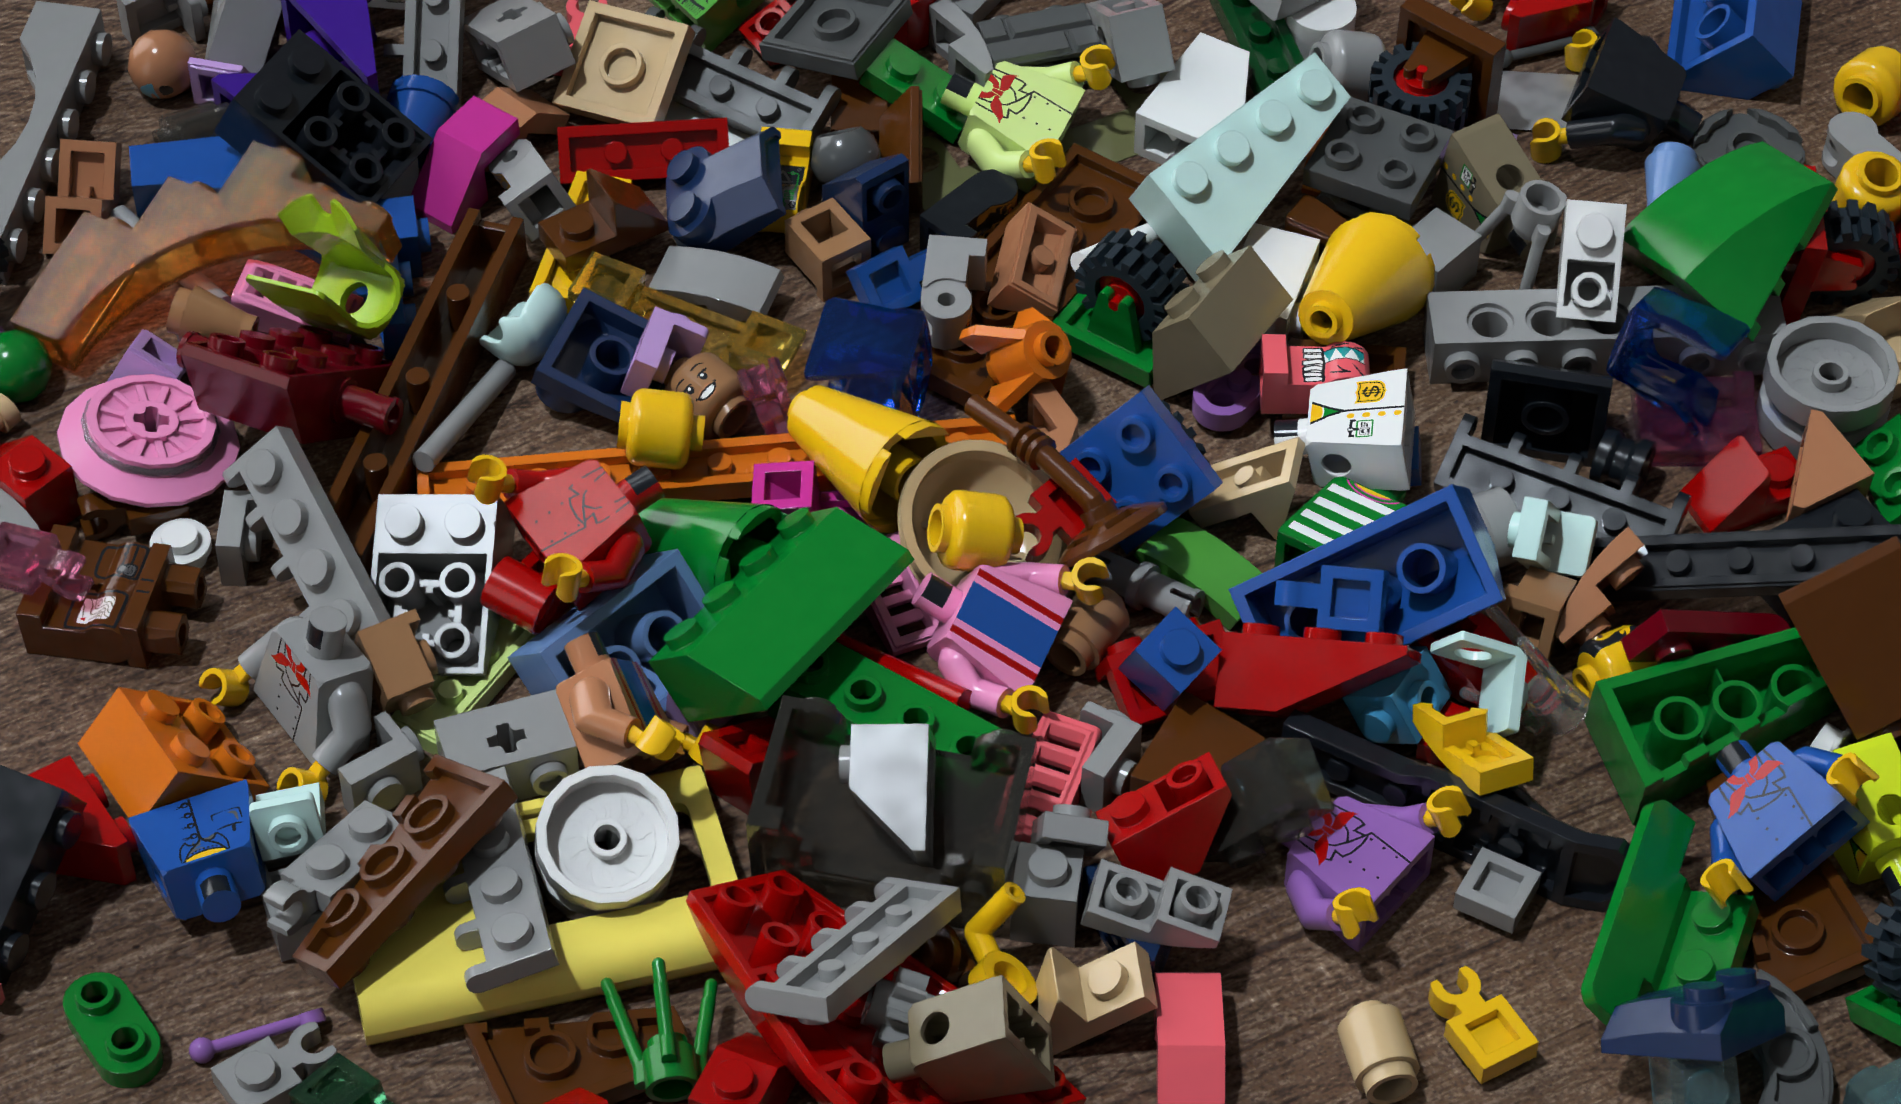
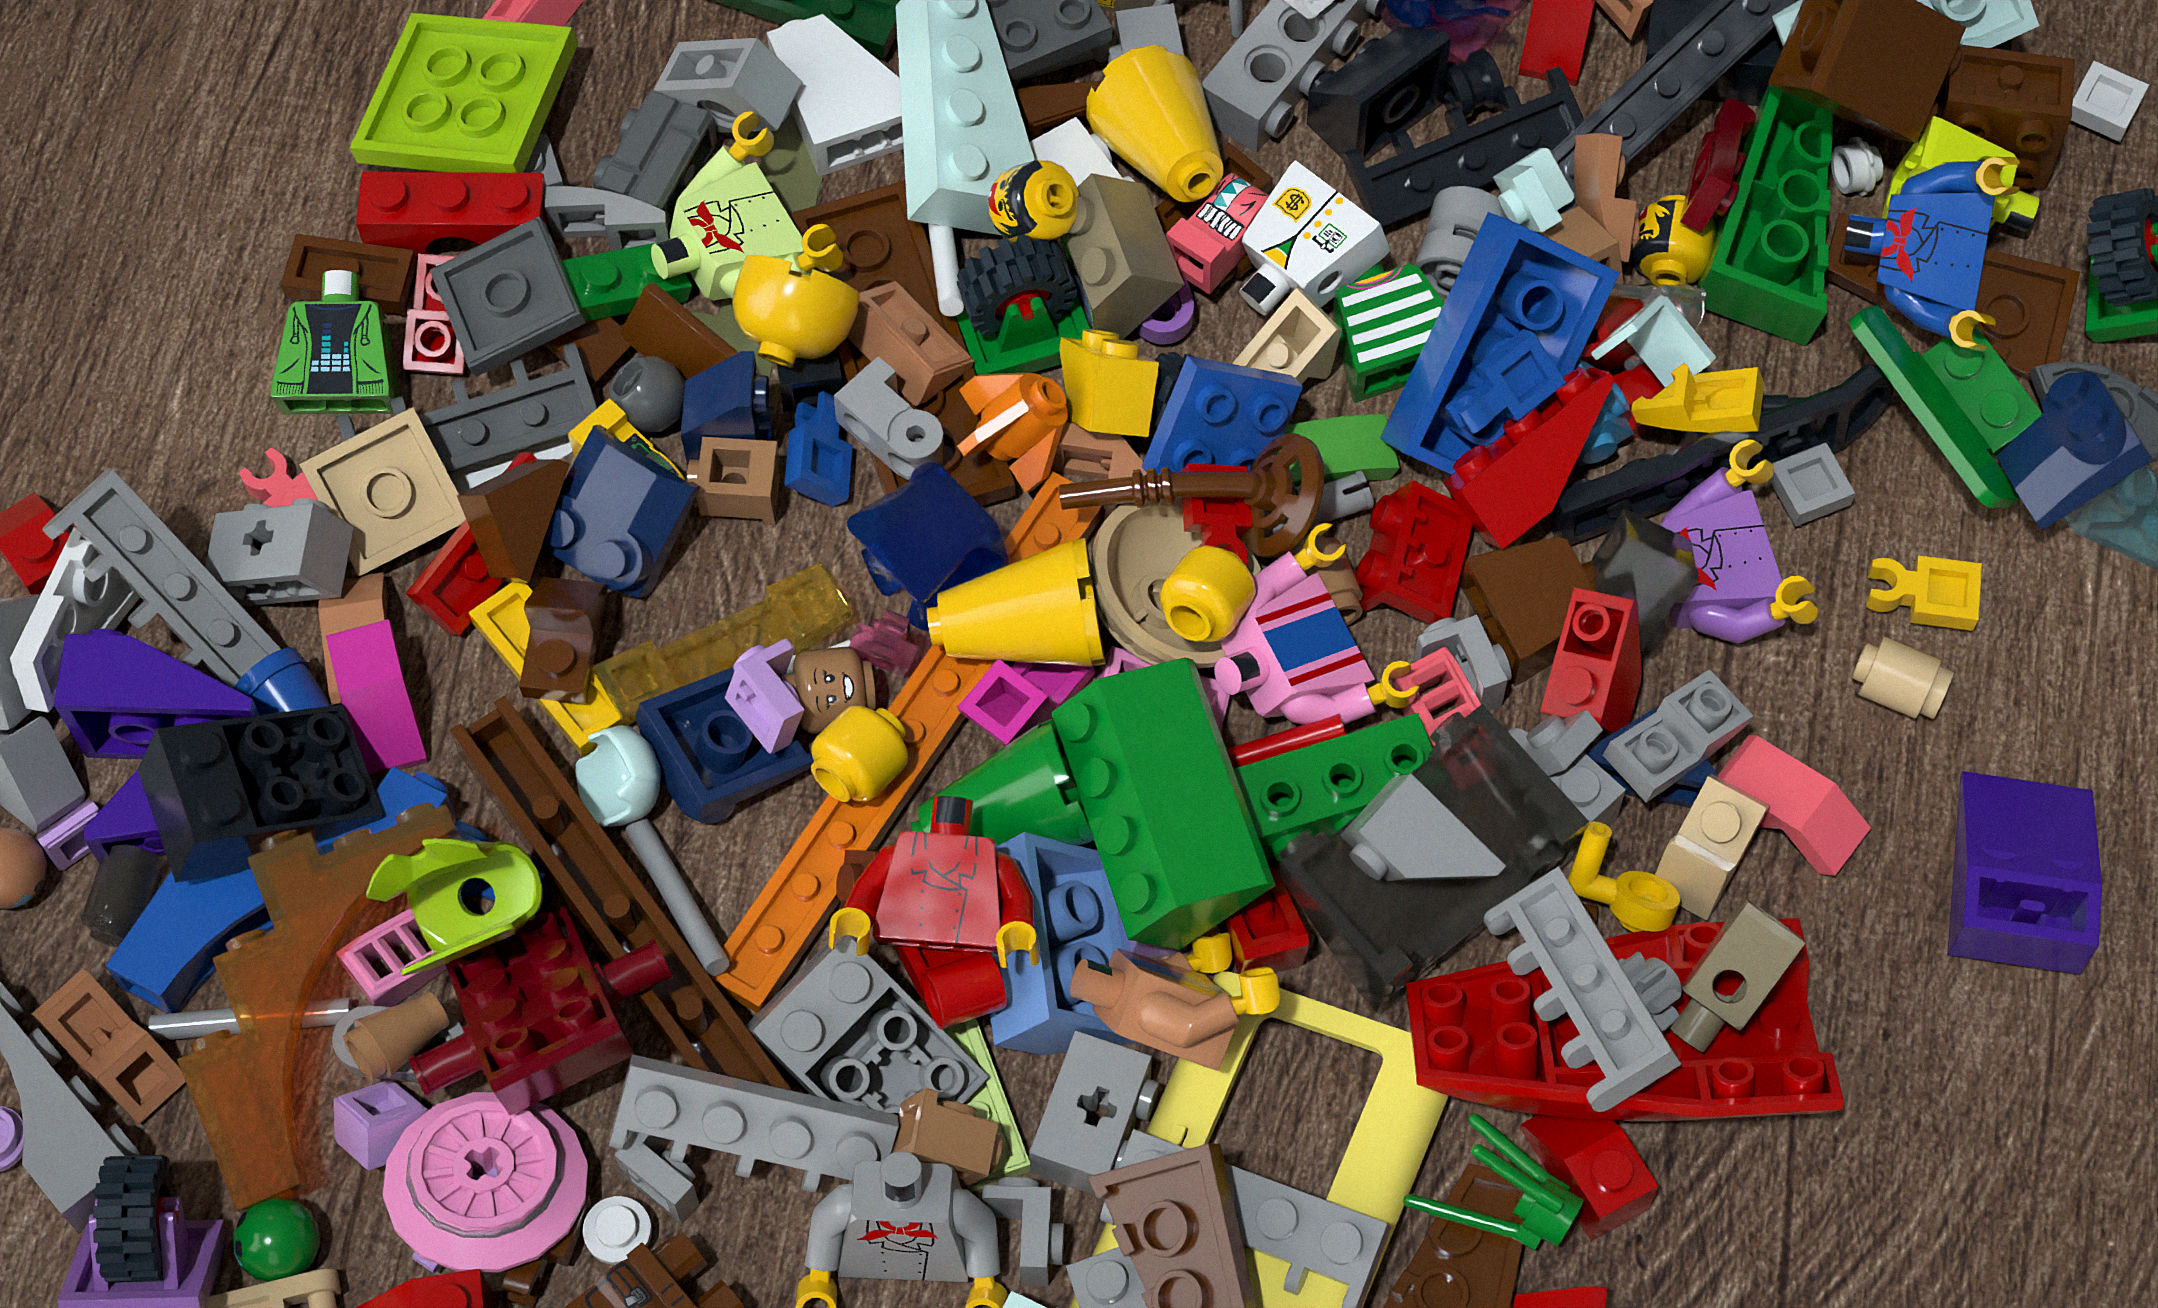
camera: 50 degrees left, 15 degrees up
(528, 185) = (441, 658): light grey leg -> none
(610, 807) = (1283, 1103): white wheel -> none
(665, 130) = (513, 515): none -> reddish brown slope
(718, 280) = (698, 591): light grey slope -> none
(969, 168) = (791, 310): none -> yellow cylinder
(1104, 382) = (1108, 383): none -> yellow slope
(1169, 658) = (1439, 546): blue brick -> none
(1176, 237) = (1033, 201): none -> yellow head

